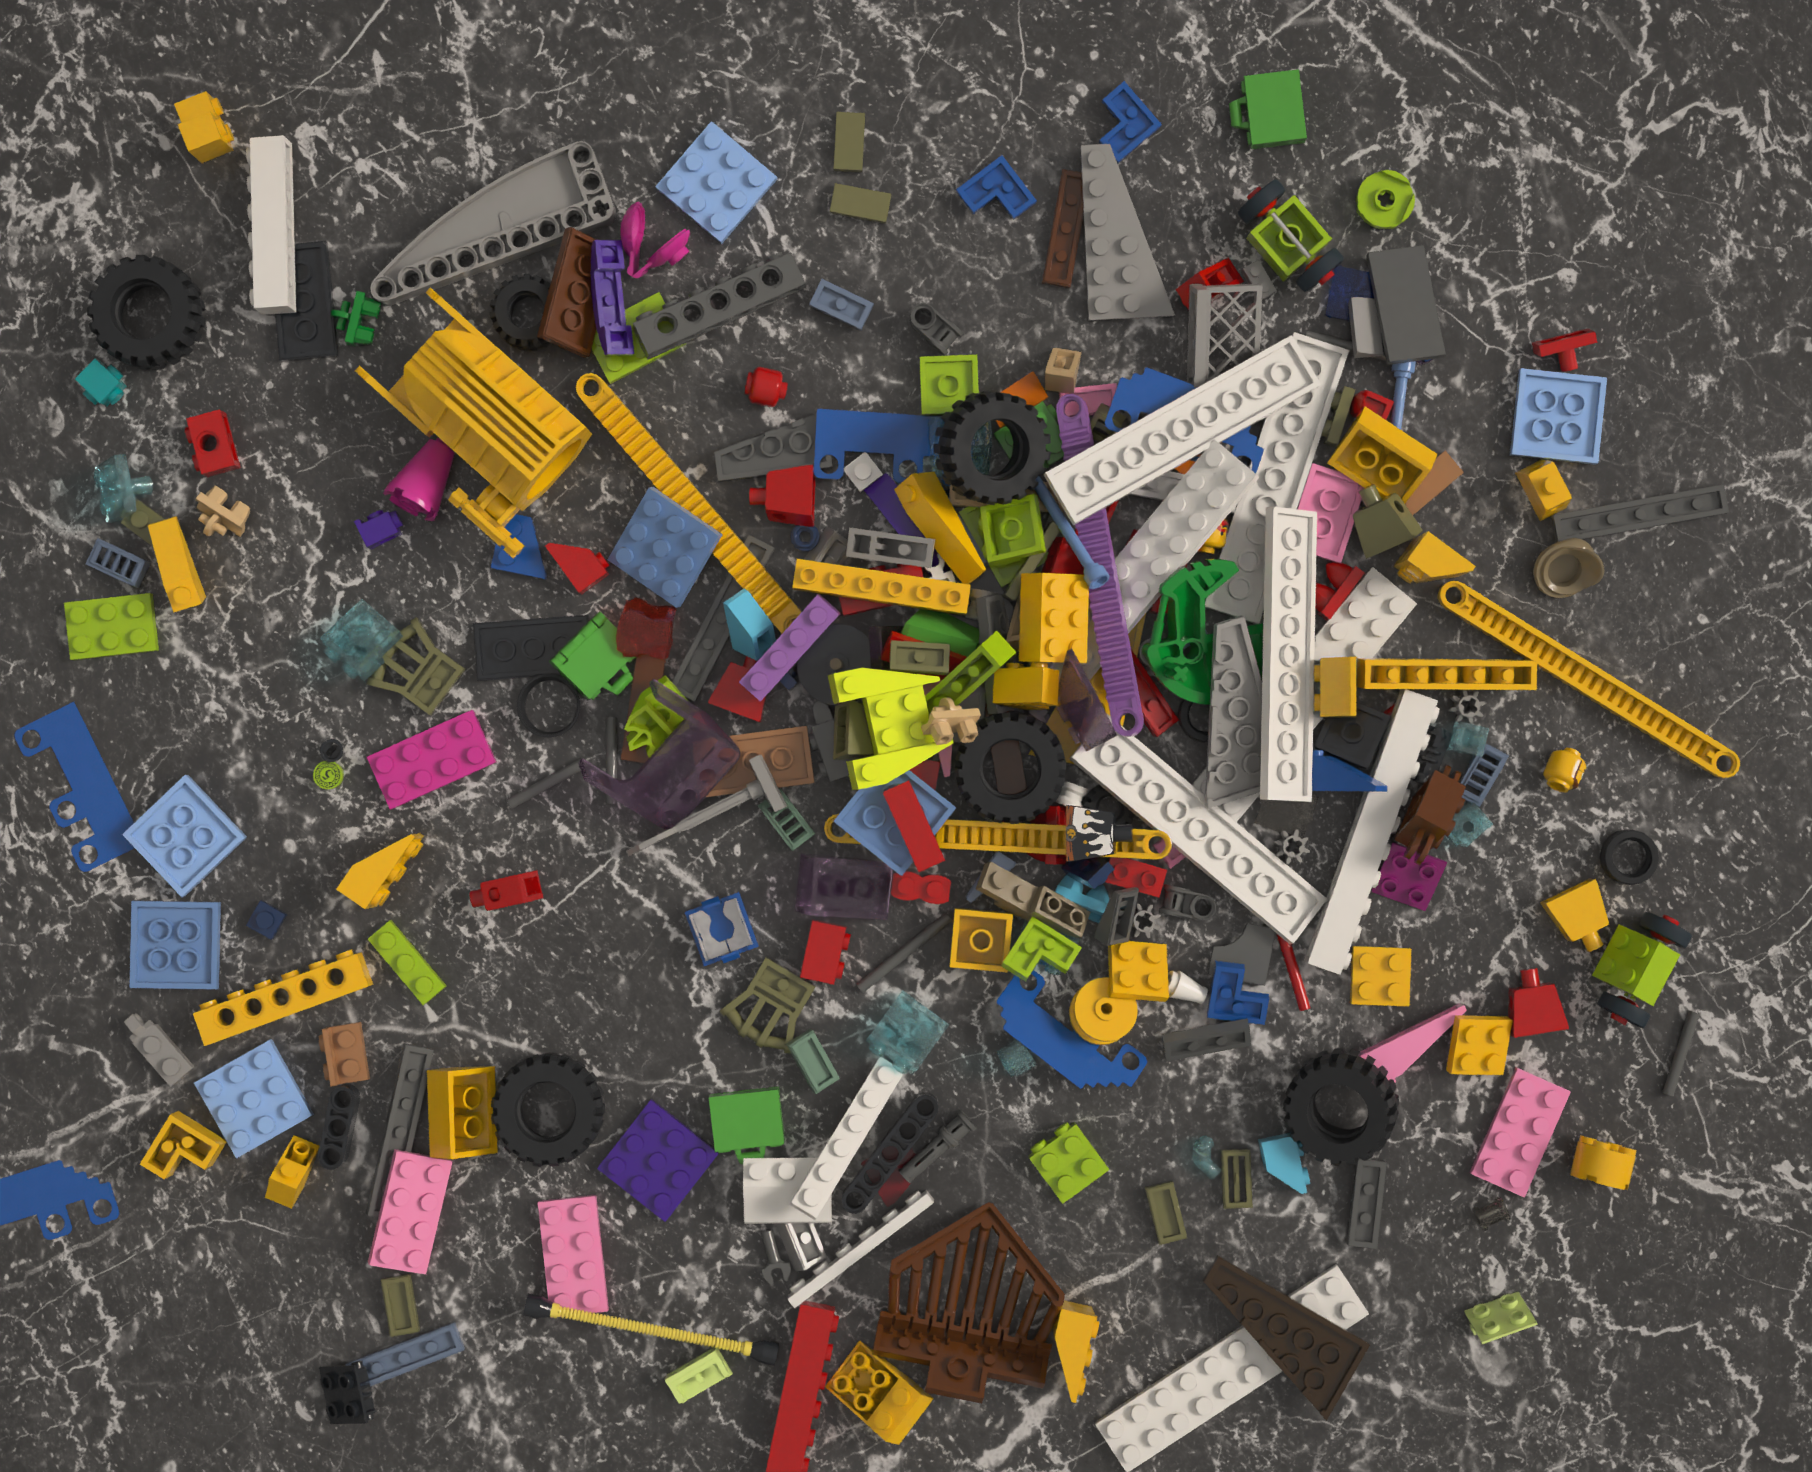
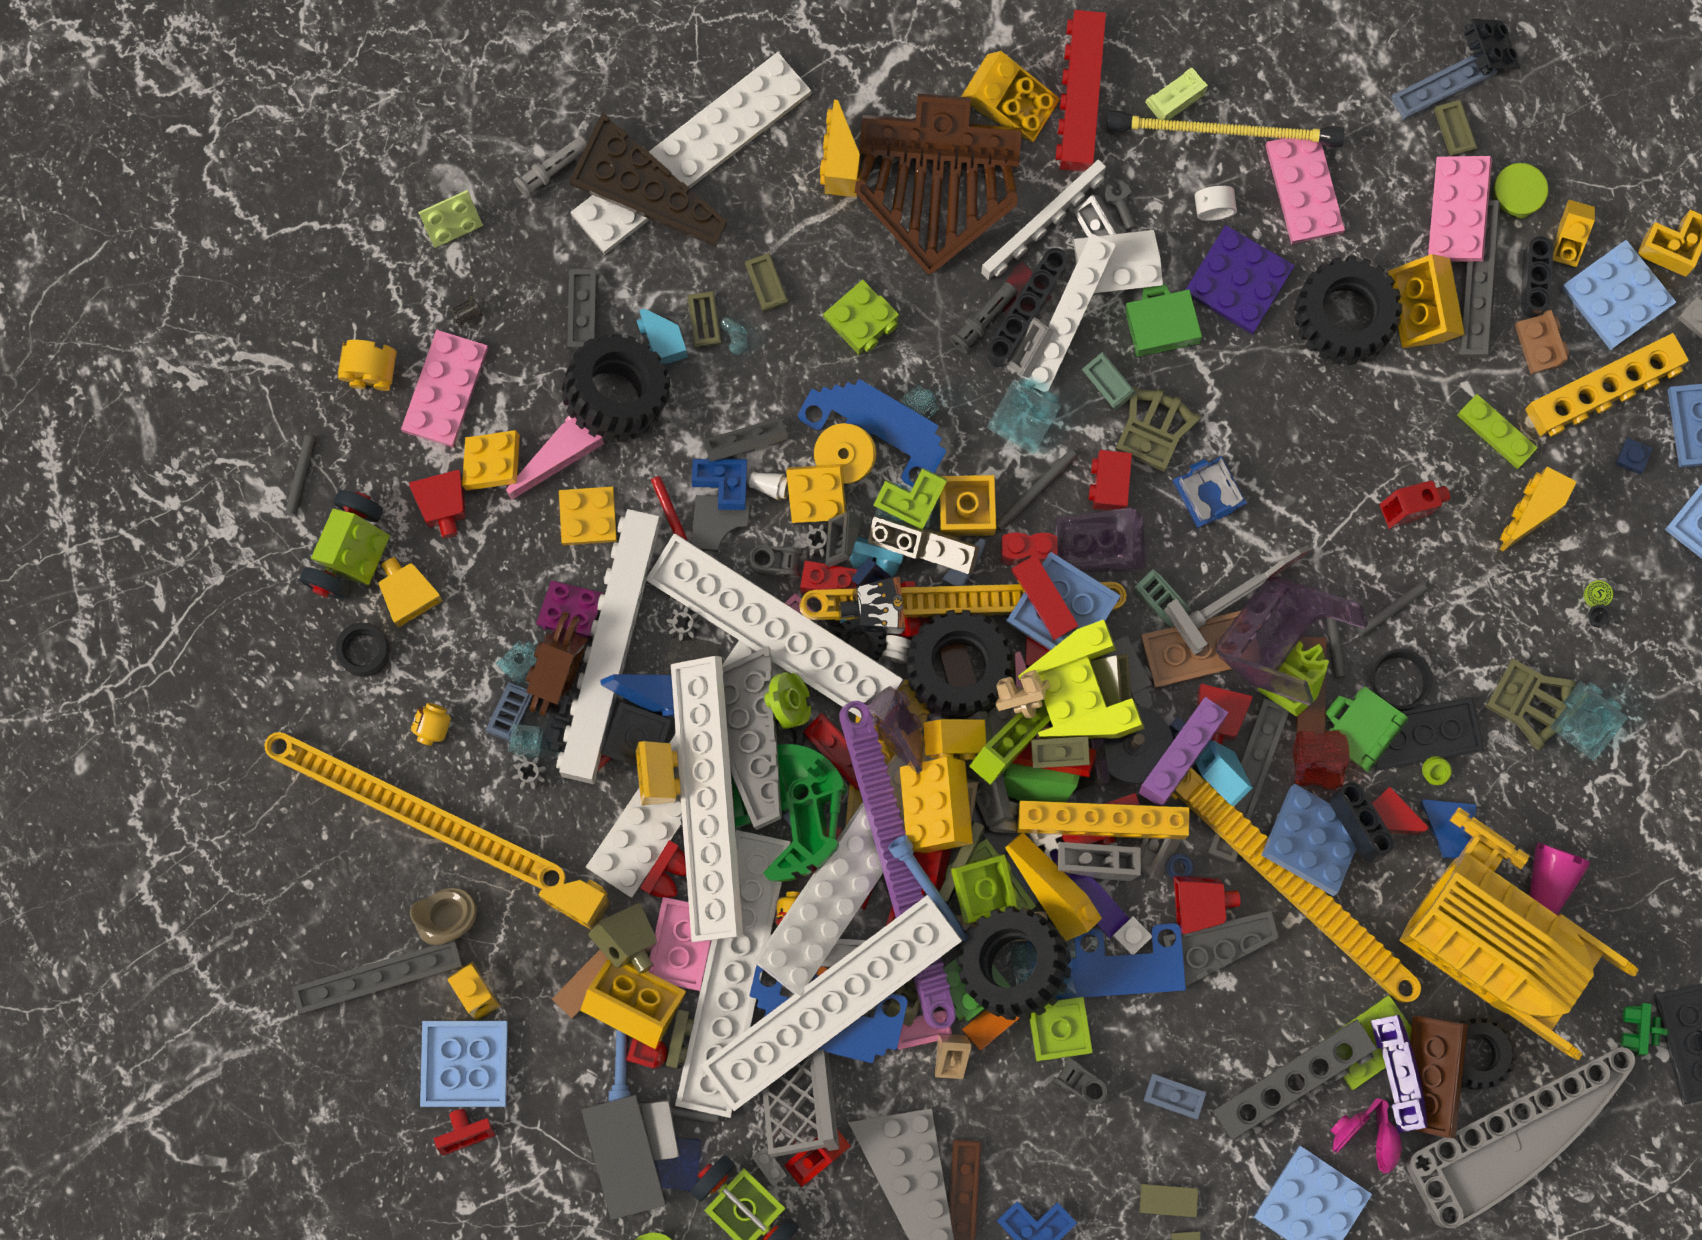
camera: 170 degrees right, 10 degrees down
(341, 1226) = (1520, 189): none -> lime tile
(379, 528) = (1587, 829): dark purple brick -> none
(431, 759) = (1503, 619): dark pink plate -> none
(525, 607) = (1436, 770): none -> lime tile
(601, 549) = (1362, 835): none -> black beam
(673, 1246) = (1215, 203): none -> white piece
(765, 387) = (1238, 1006): red head -> none
(892, 1105) = (1031, 347): none -> light grey tile
(1197, 736) = (788, 700): none -> lime plate
(1401, 1357) = (538, 170): none -> light grey pin
(1447, 674) = (552, 799): yellow brick -> none

